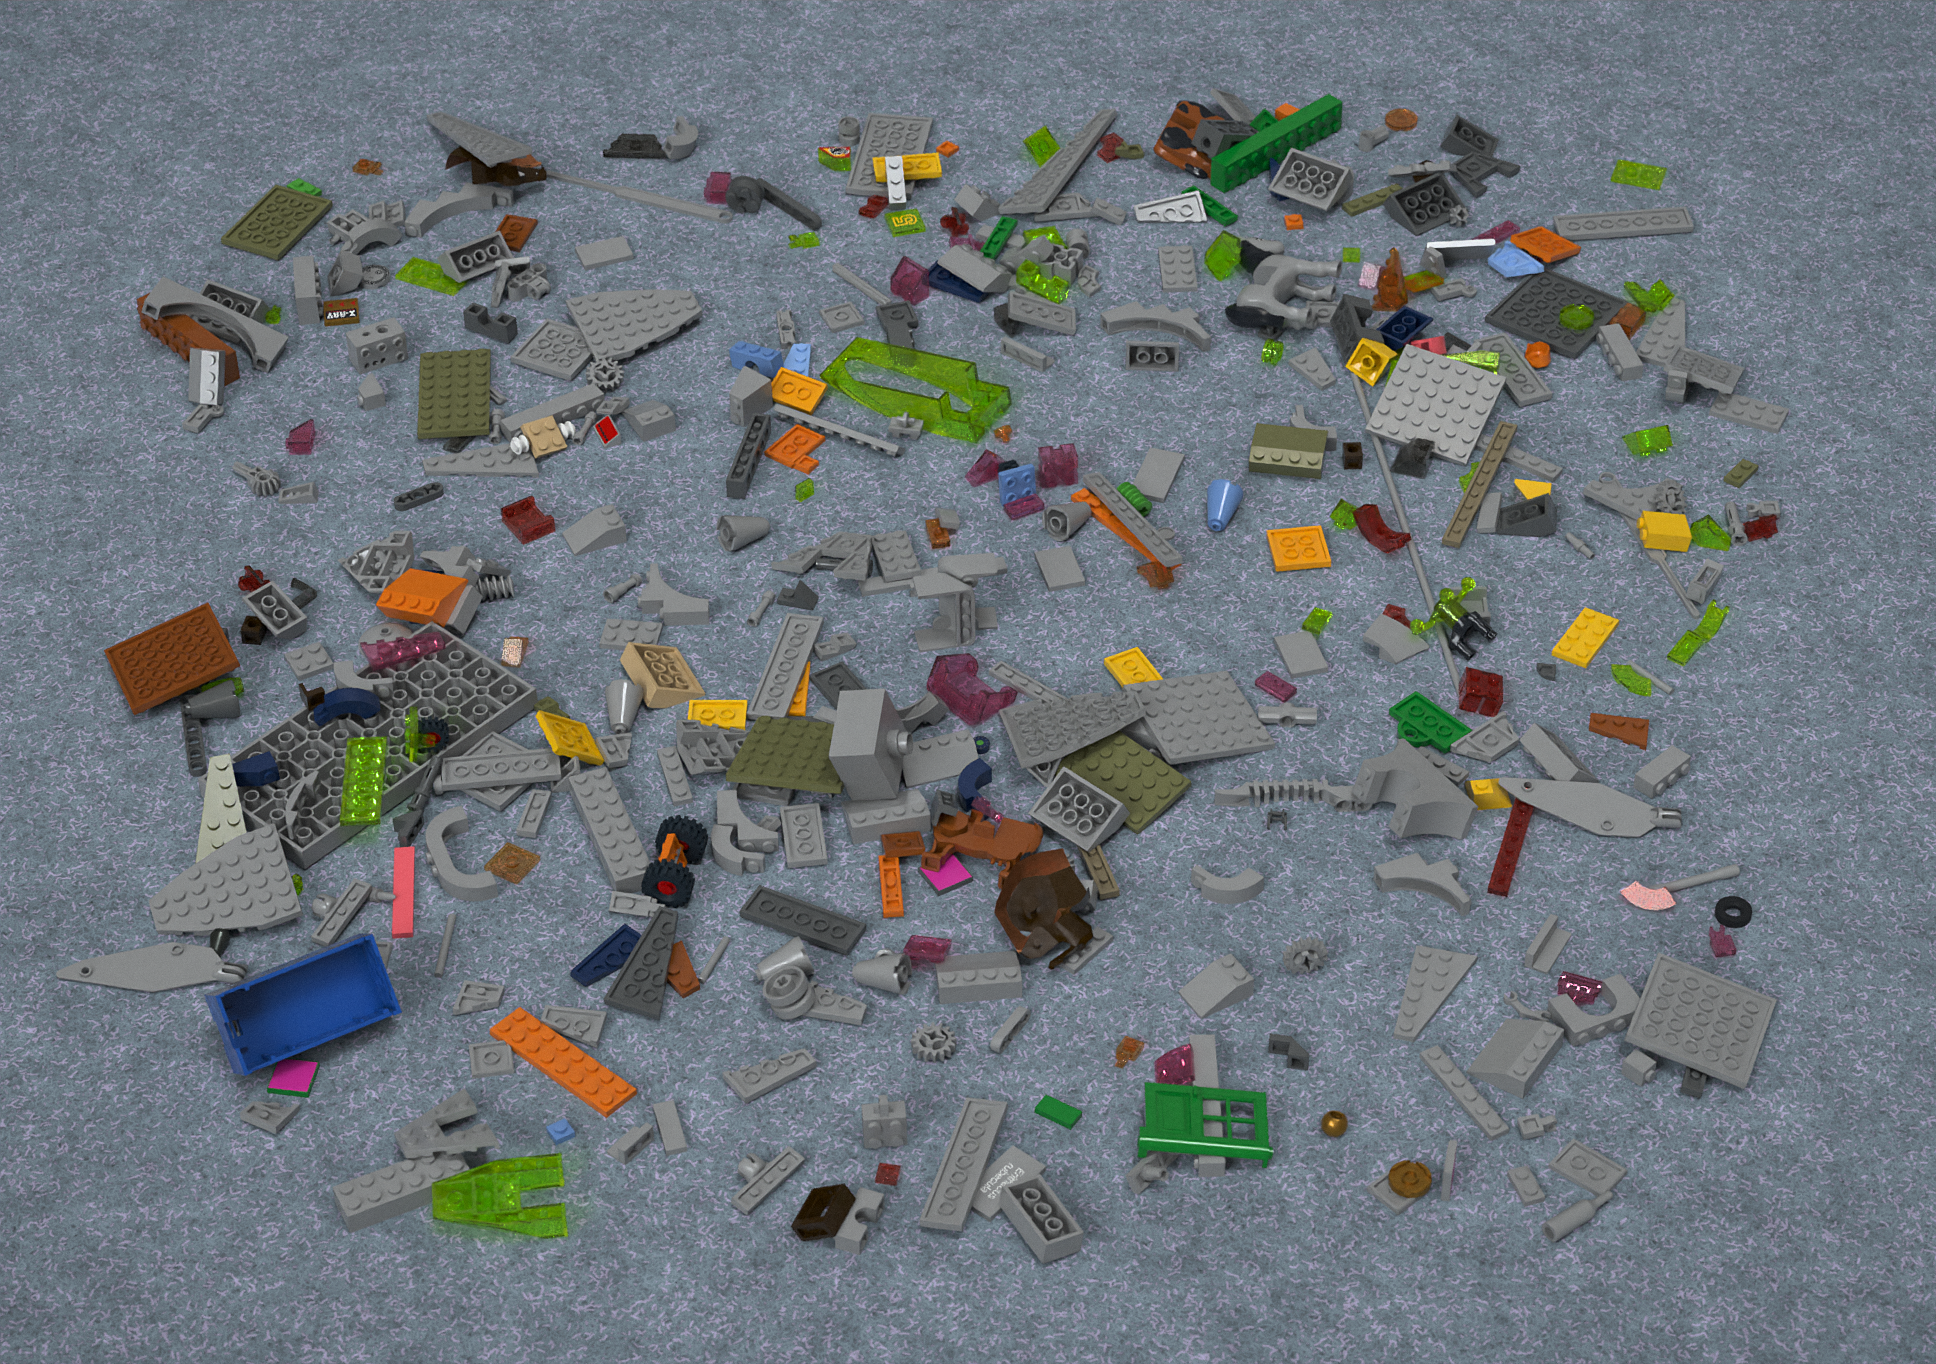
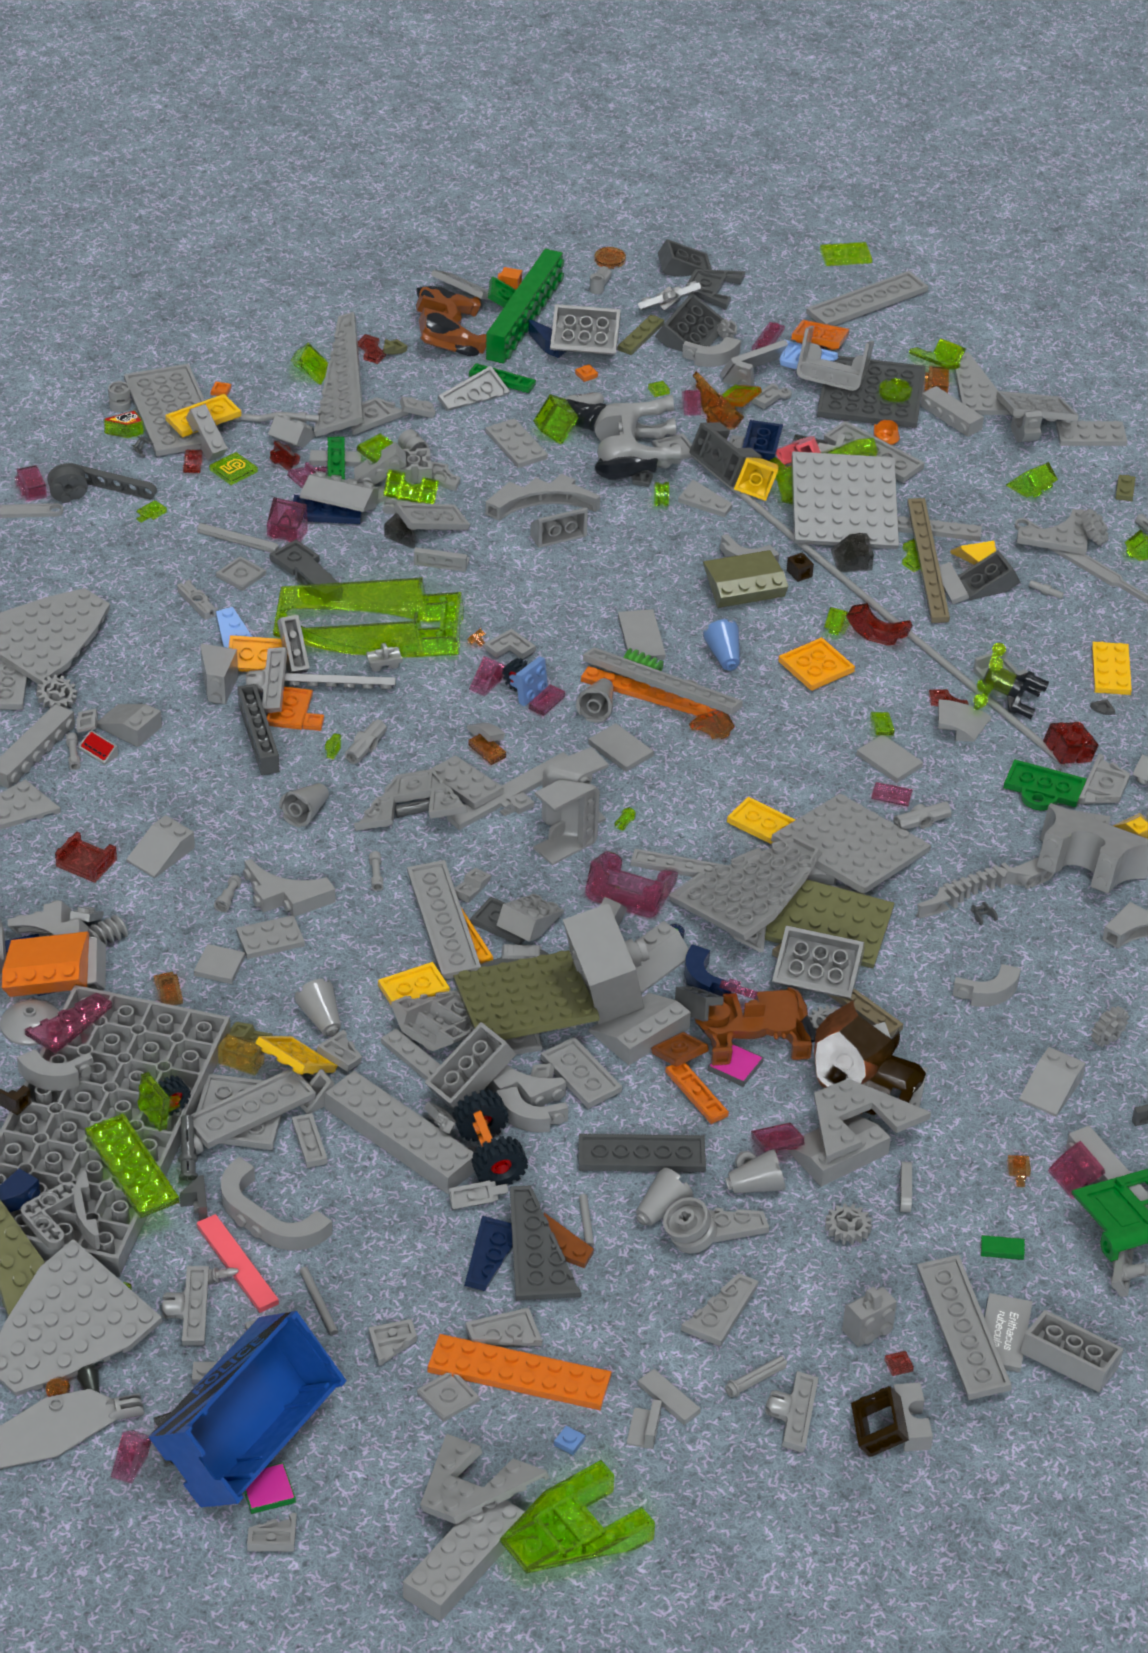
camera: 30 degrees left, 0 degrees up
(190, 936) = (57, 1386): none -> clear orange tile
(199, 1015) = (130, 1455): none -> clear pink slope
(265, 796) = (38, 1215): none -> light grey beam
(347, 701) = (57, 1093): dark blue arch -> none
(512, 863) = (322, 1195): clear orange tile -> none
(526, 723) = (240, 1054): none -> clear yellow brick
(543, 437) = (43, 771): tan plate -> none
(572, 644) = (219, 964): none -> light grey tile
(649, 830) = (440, 1117): none -> light grey hinge
(661, 674) = (326, 959): tan slope -> none
(703, 794) = (470, 1066): none -> light grey brick
(747, 354) = (209, 632): medium blue arch -> none
(755, 1138) = (734, 1387): none -> light grey axle
(787, 416) = (271, 679): none -> light grey plate
(801, 597) = (405, 850): dark grey slope -> none
(827, 390) = (293, 640): none -> light grey brick
(834, 181) = (138, 450): none -> dark grey piece
(835, 494) = (365, 741): none -> light grey piece
(854, 679) = (528, 916): none -> light grey slope
(993, 191) = (301, 416): none -> light grey bar
(1003, 936) = (852, 1098): none -> light grey wing
(1014, 631) = (628, 814): none -> clear neon green pin
(1025, 445) = (511, 642): none -> light grey plate
(1058, 465) = (557, 650): clear pink brick -> none
(1219, 135) = (482, 308): dark grey plate -> none
(1419, 236) = (712, 355): none -> light grey arch
(1511, 275) = (831, 373): none -> light grey windscreen
(1664, 531) = (1108, 555): yellow brick -> none

